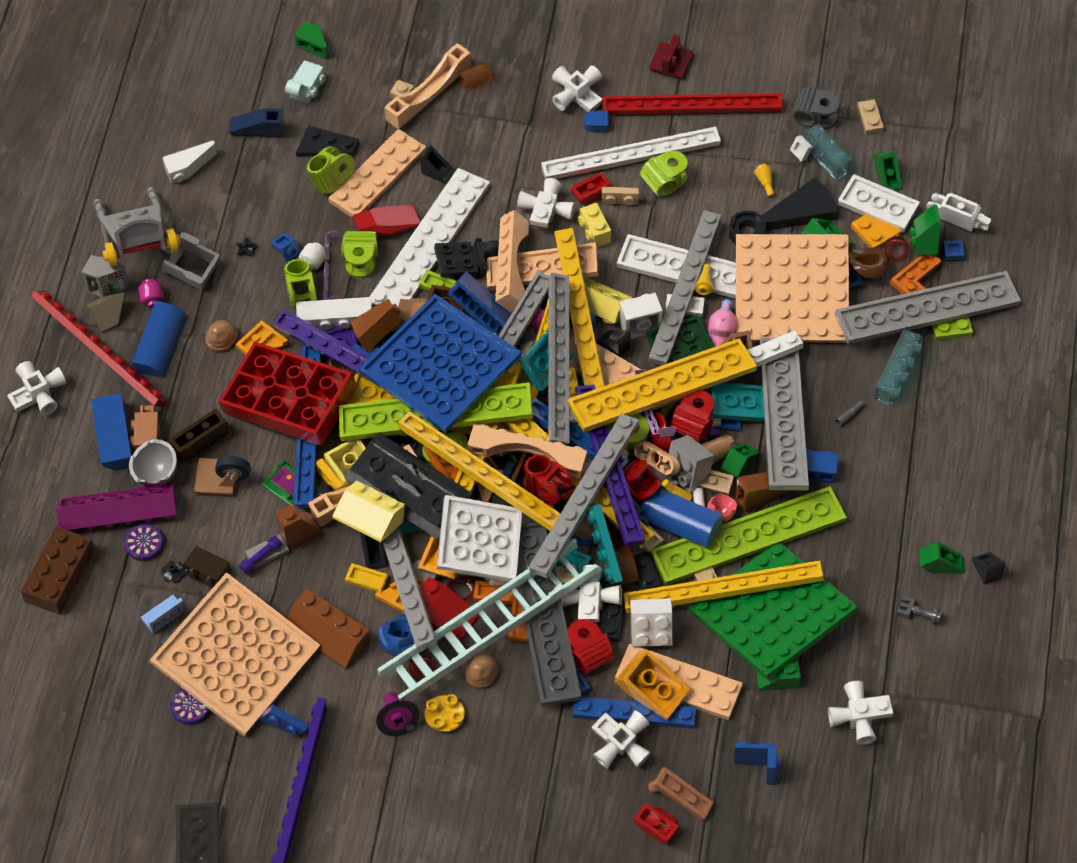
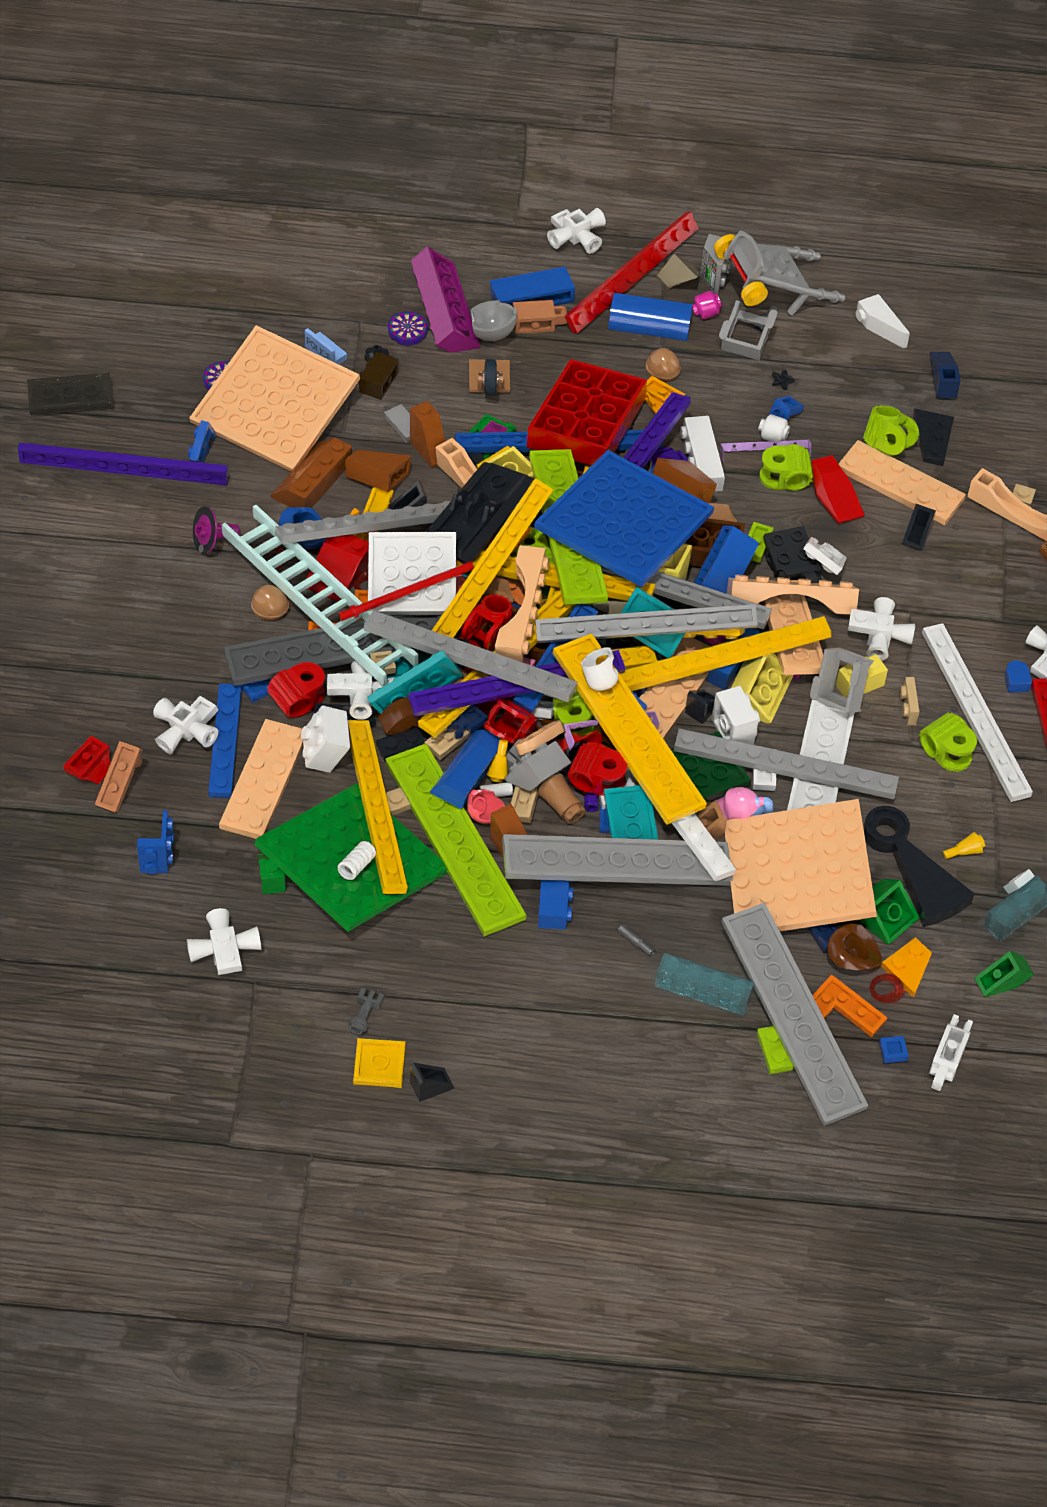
camera: 80 degrees right, 5 degrees down
(57, 570) = (366, 264): reddish brown brick -> none
(199, 435) = (531, 353): dark brown brick -> none
(273, 544) = (382, 405): dark purple bar -> none
(298, 271) = (739, 411): lime piece -> none
(306, 82) = (1010, 407): light aqua hinge -> none
(330, 571) = (378, 468): none -> dark orange slope
(369, 511) = (439, 481): light yellow slope -> none
(438, 226) = (858, 545): white plate -> none
(444, 713) = (218, 576): yellow dish -> none
(468, 231) = (826, 554): none -> white plate
(521, 585) = (354, 611): none -> red bar
(590, 188) = (911, 666): red slope -> none
(619, 388) = (600, 676): none -> white helmet
(624, 240) = (824, 684): none -> light grey piece
(652, 684) = (249, 742): light orange slope -> none
(704, 283) = (792, 780): yellow cone -> none
(740, 459) = (553, 821): green slope -> none
(792, 597) = (356, 860): none -> white piece
(878, 202) = (951, 967): white plate -> none
(926, 232) = (904, 1011): green slope -> none
(941, 559) = (434, 1031): green slope -> none
(968, 604) = (379, 1063): none -> yellow tile

